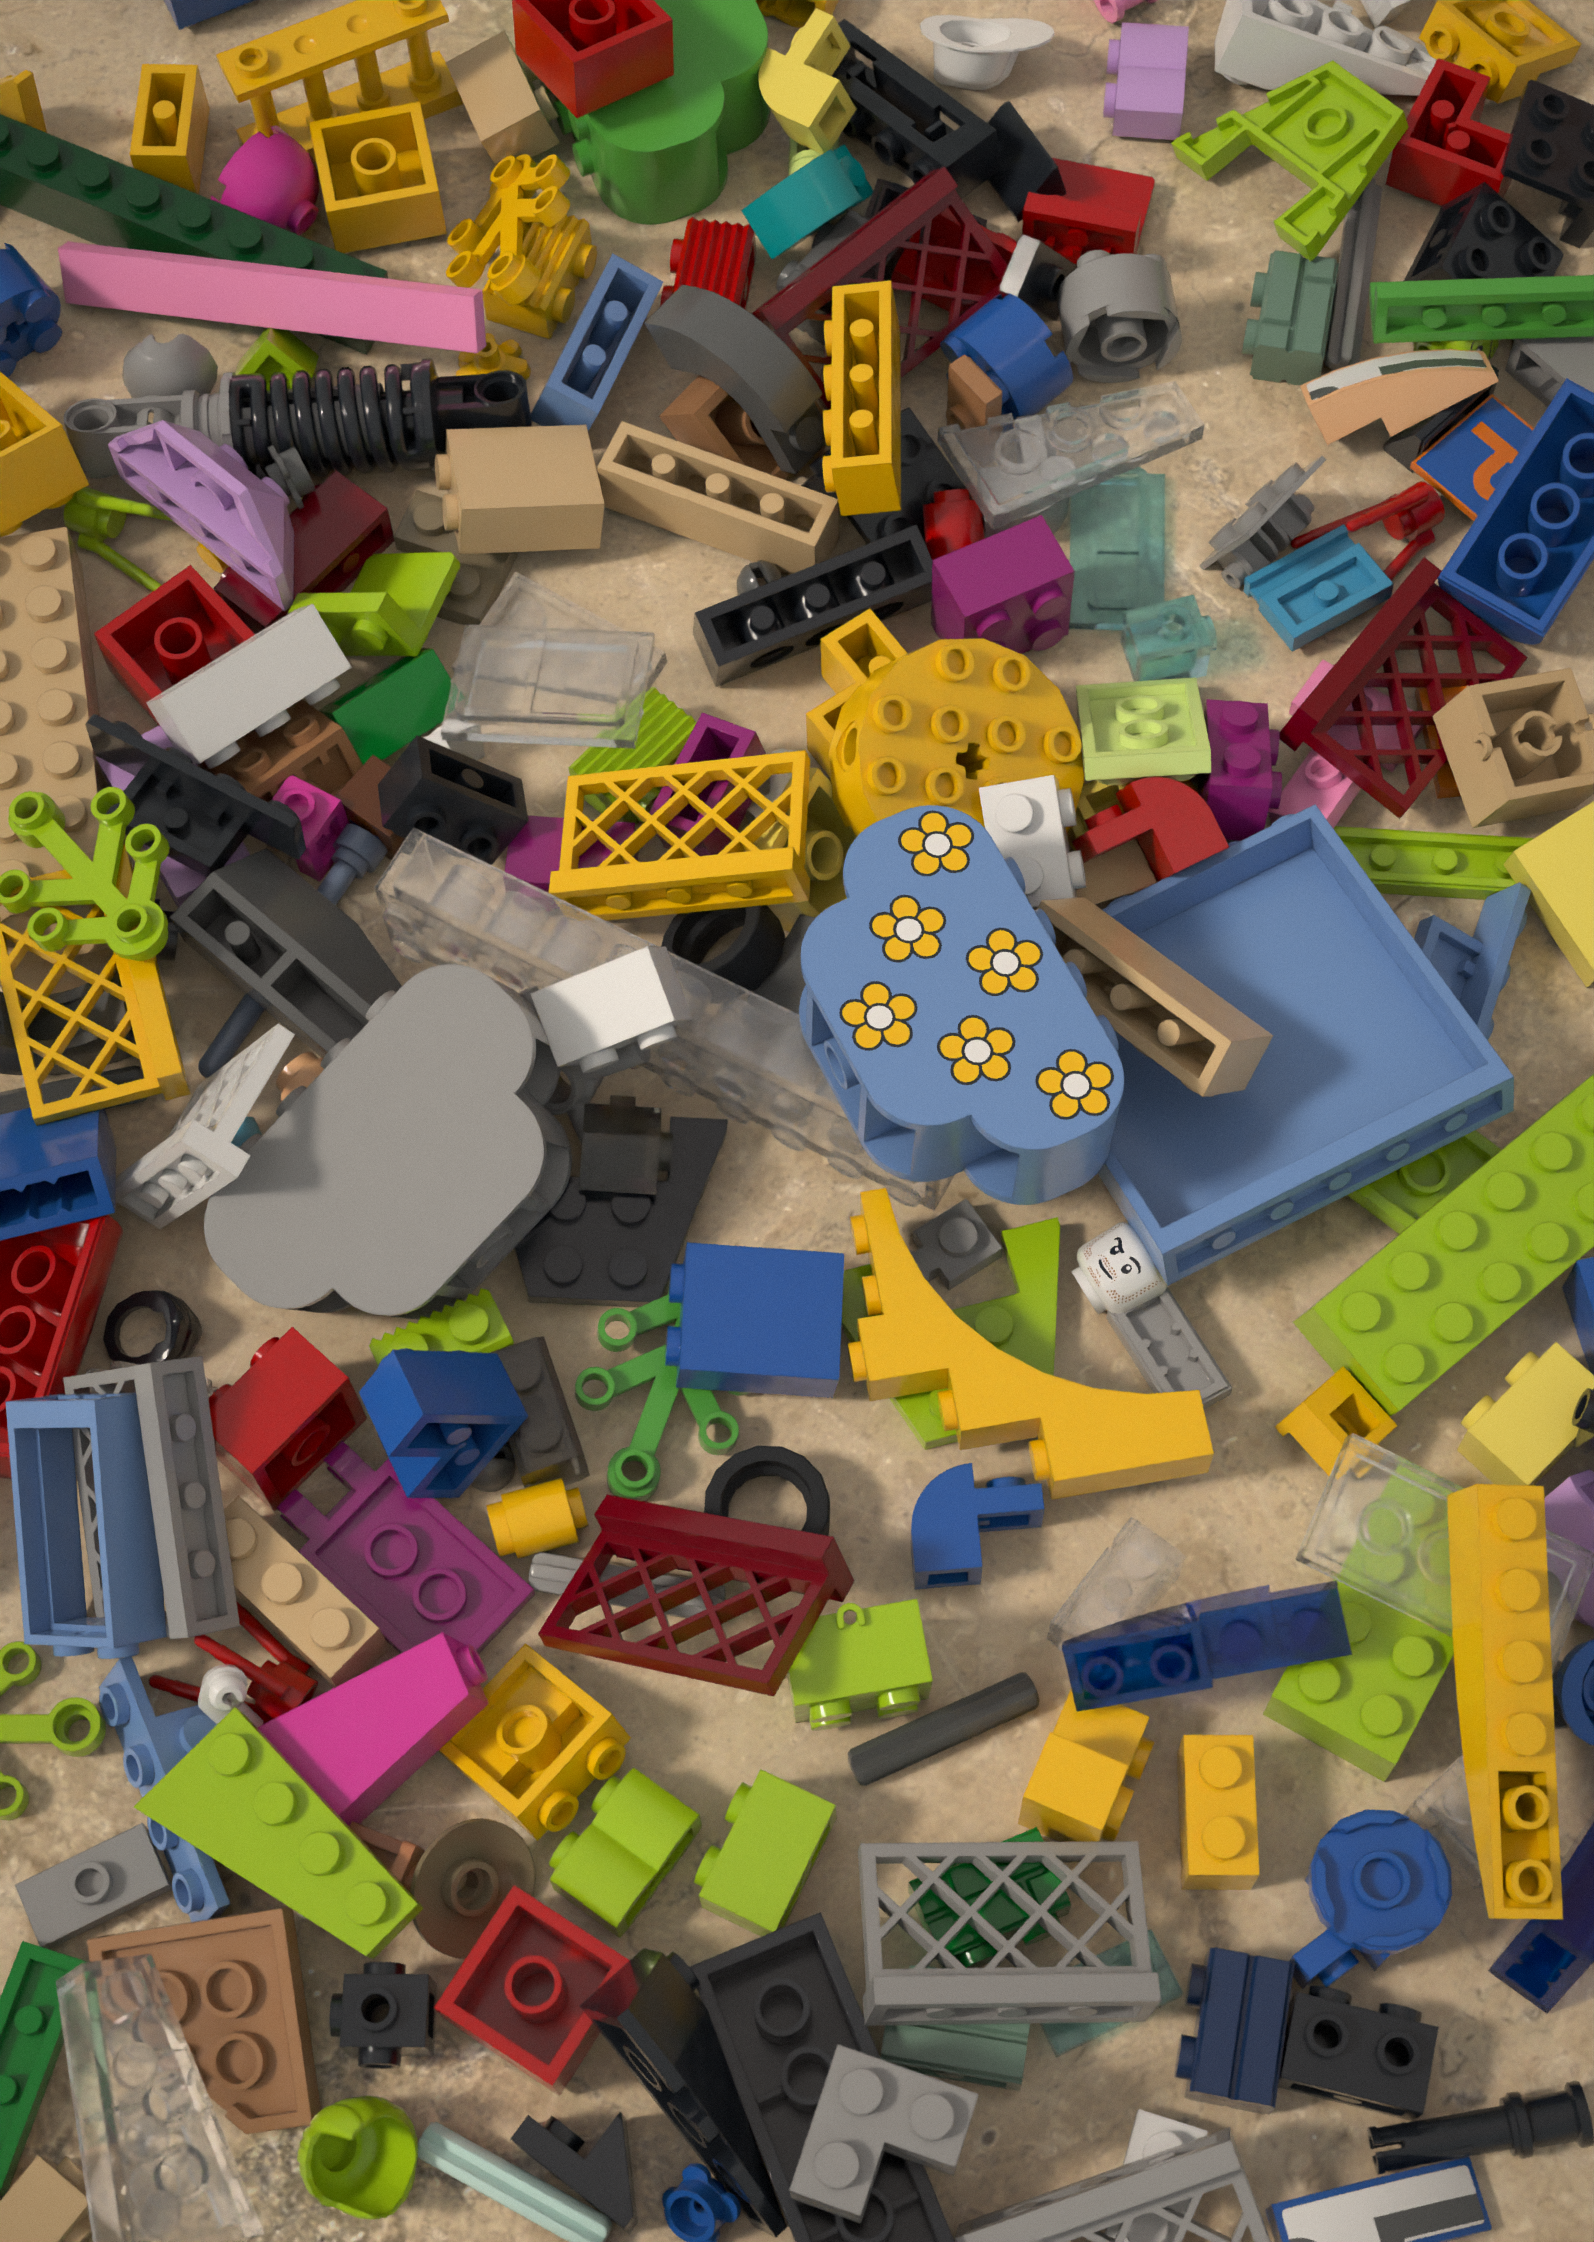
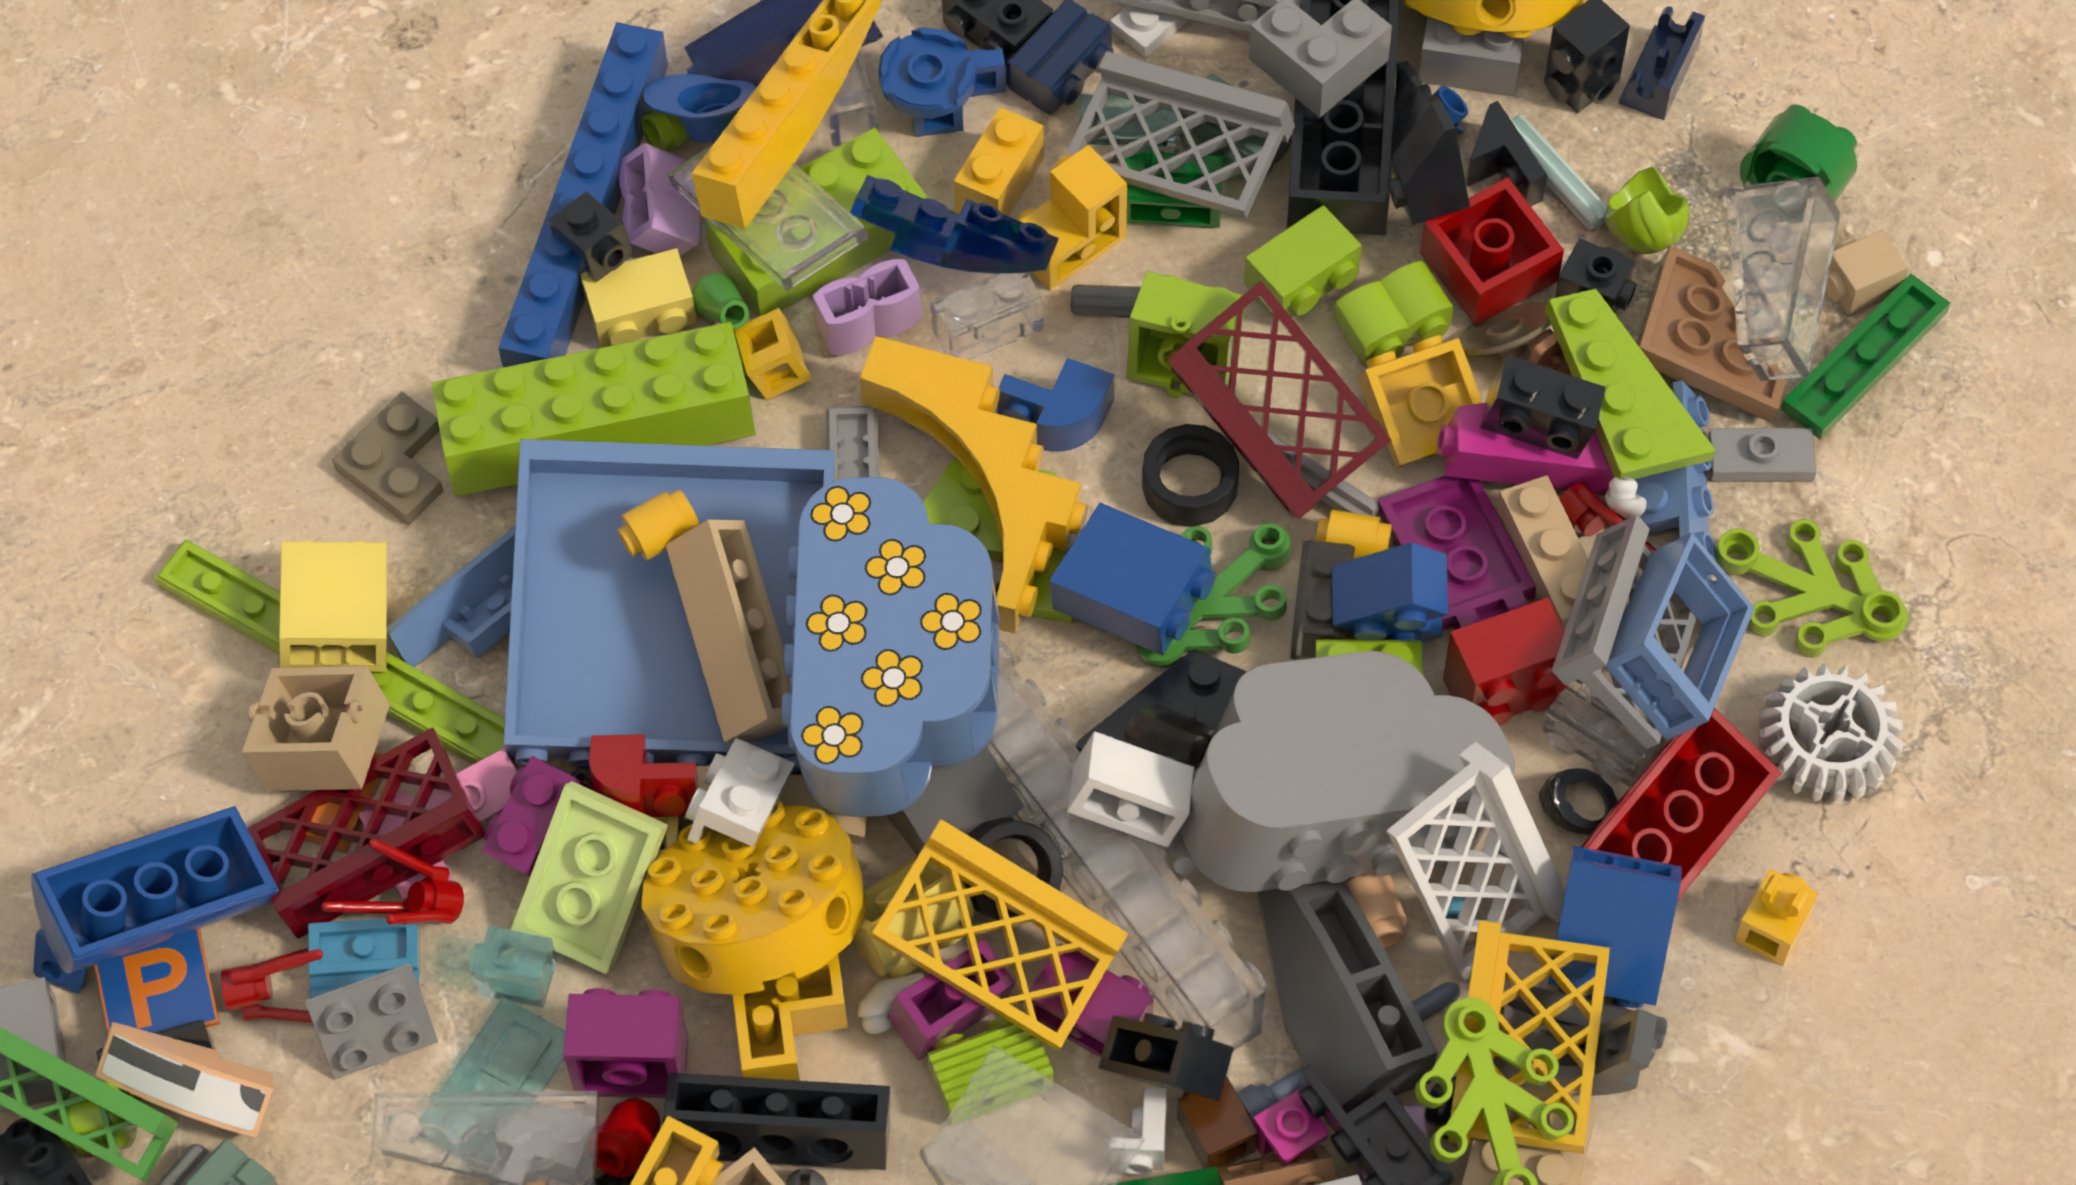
camera: 155 degrees left, 5 degrees down
(357, 1725) = (1542, 407): none -> black brick
(1267, 1521) = (875, 304): none -> lavender brick
(1293, 662) = (427, 900): none -> red plant
(1297, 1059) = (656, 524): none -> yellow brick
(1434, 1448) = (720, 300): none -> bright green cone

